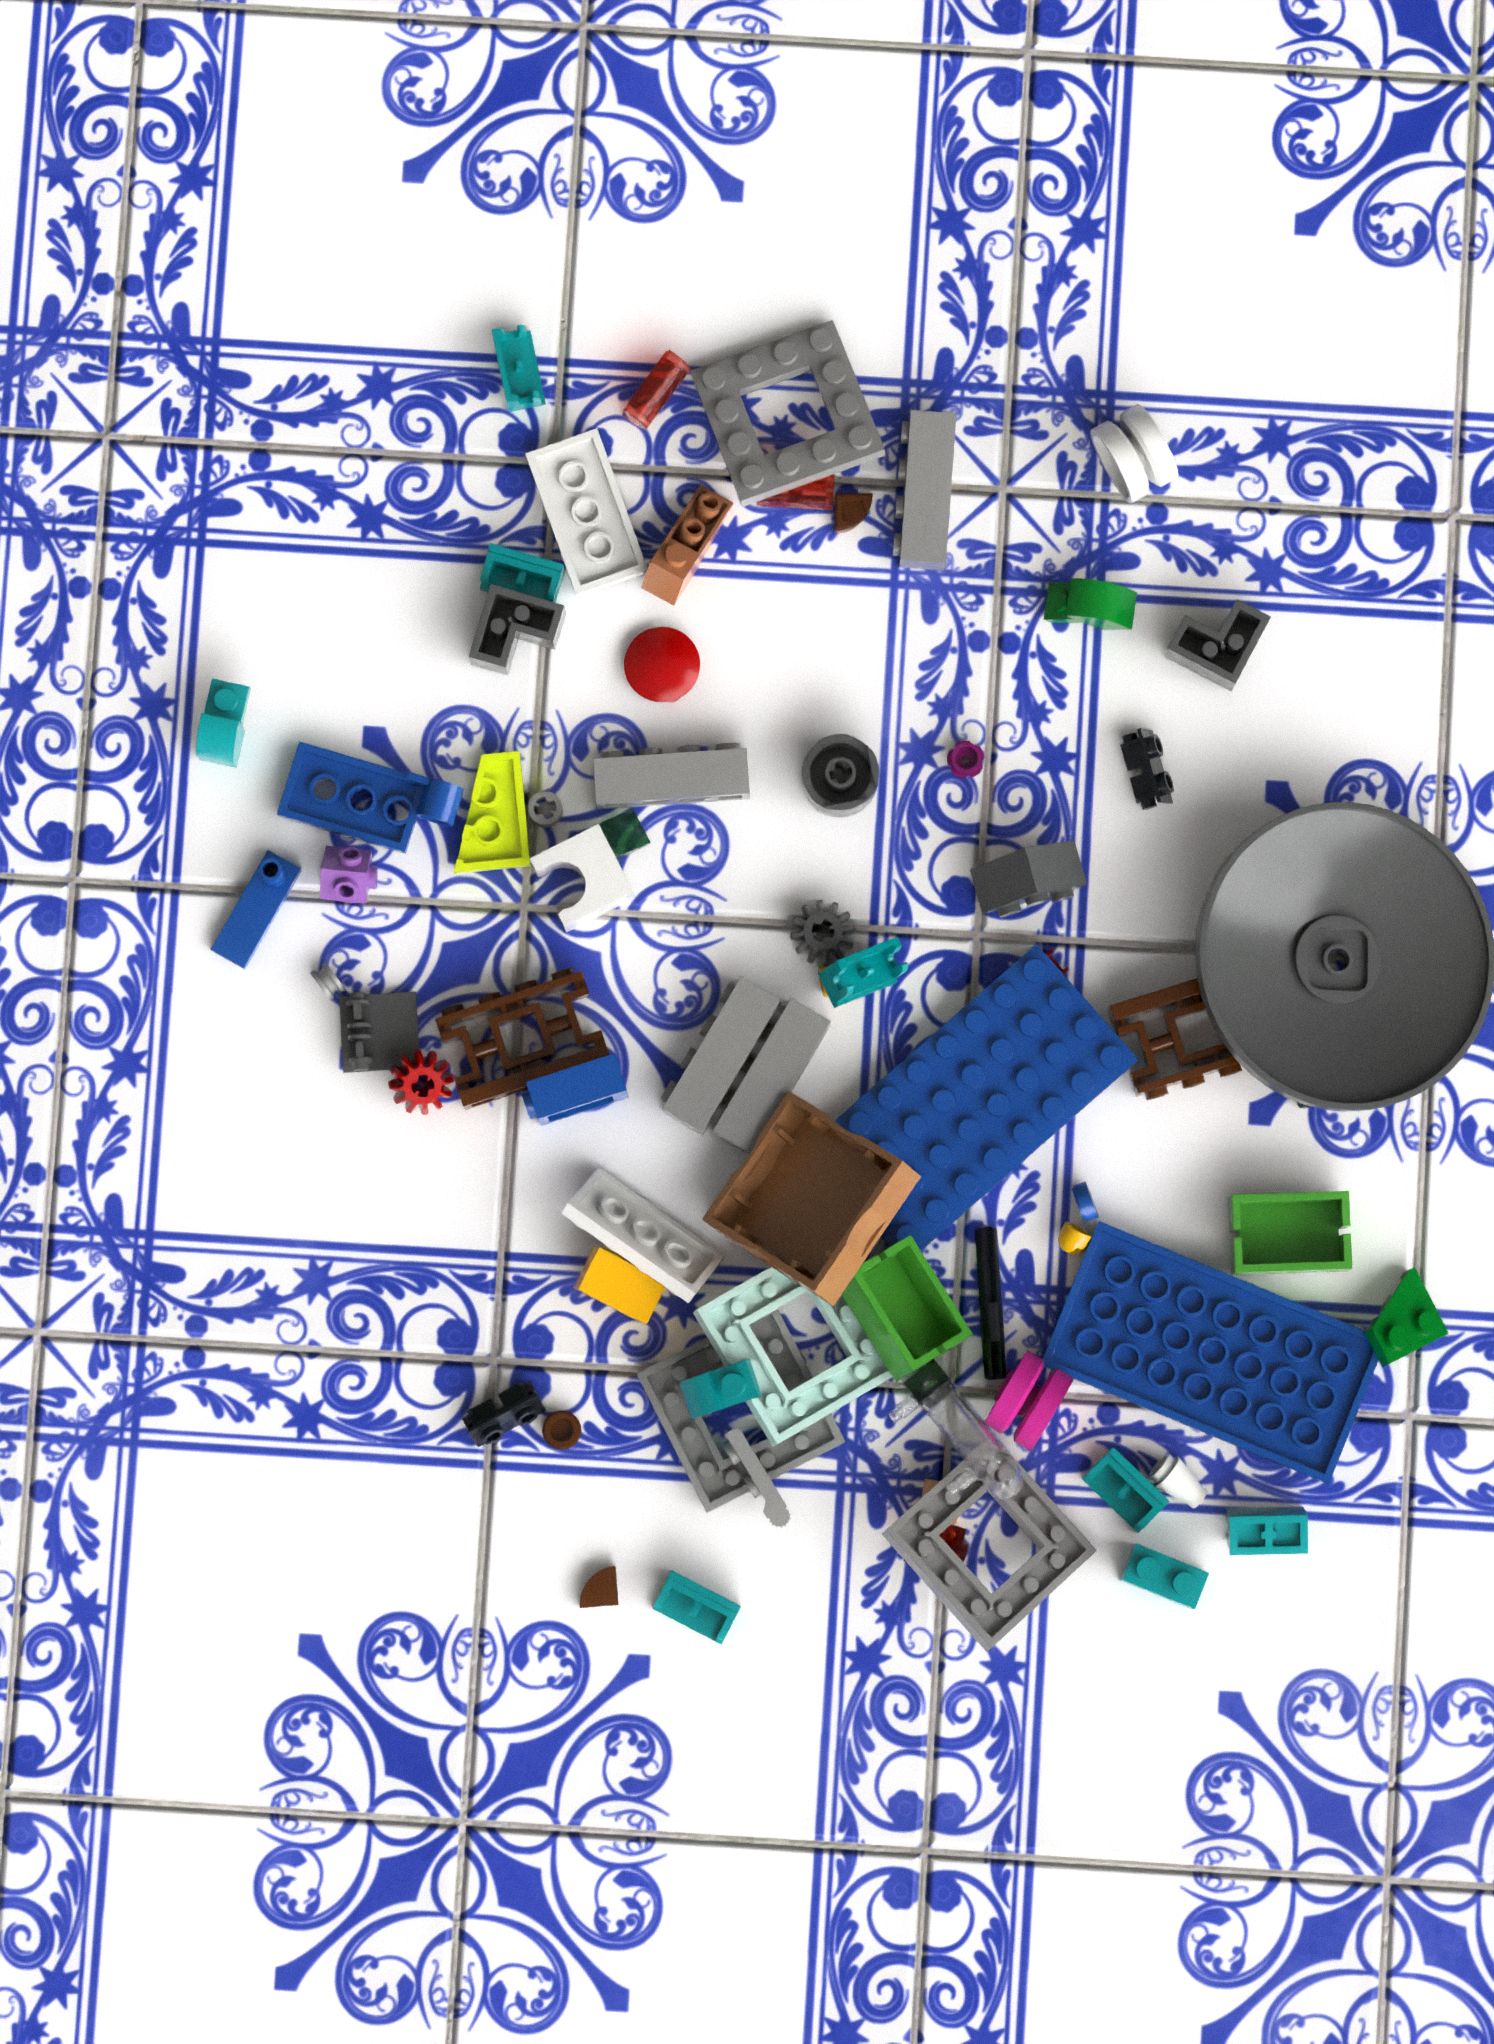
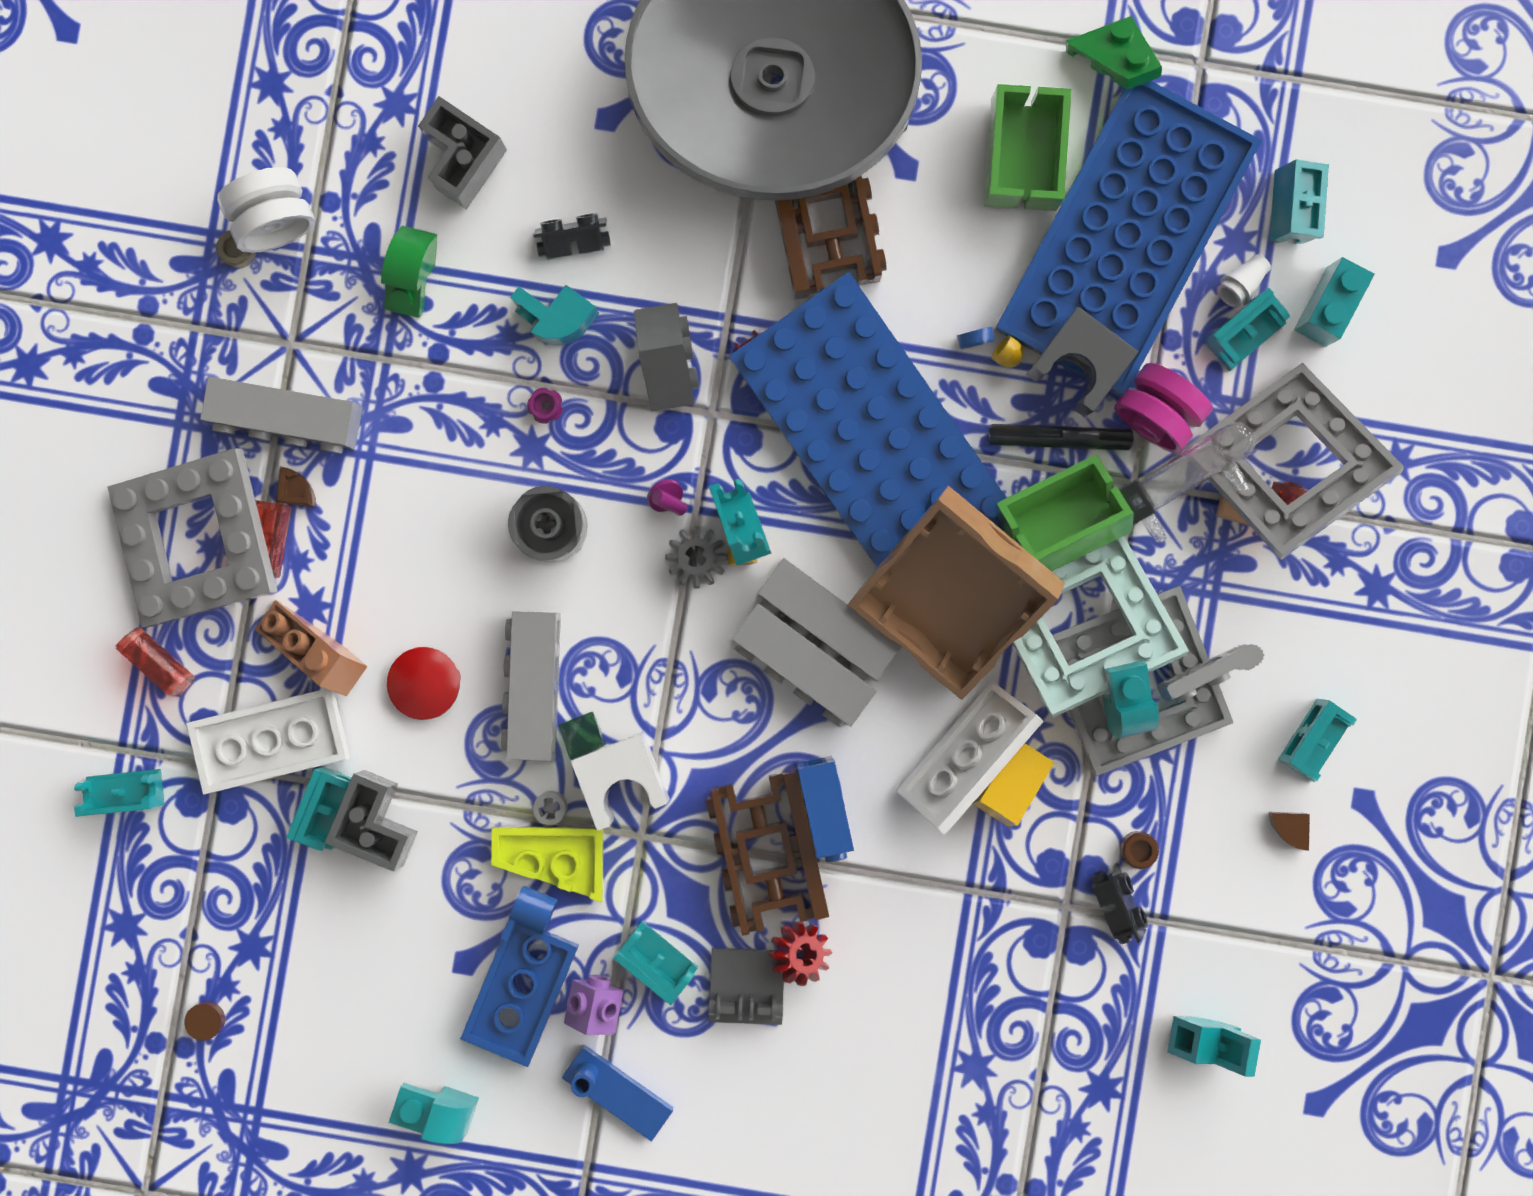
camera: 85 degrees left, 5 degrees up
(291, 478) = (204, 1020): none -> reddish brown tile
(327, 981) = (693, 1032): light grey bush -> none
(368, 1520) = (1214, 1043): none -> teal brick
(396, 934) = (656, 962): none -> teal hinge
(883, 896) = (667, 497): none -> magenta plate
(1055, 768) = (560, 323): none -> teal brick
(1088, 1311) = (1091, 347): none -> dark grey piece
(1092, 416) = (231, 254): none -> dark tan tile

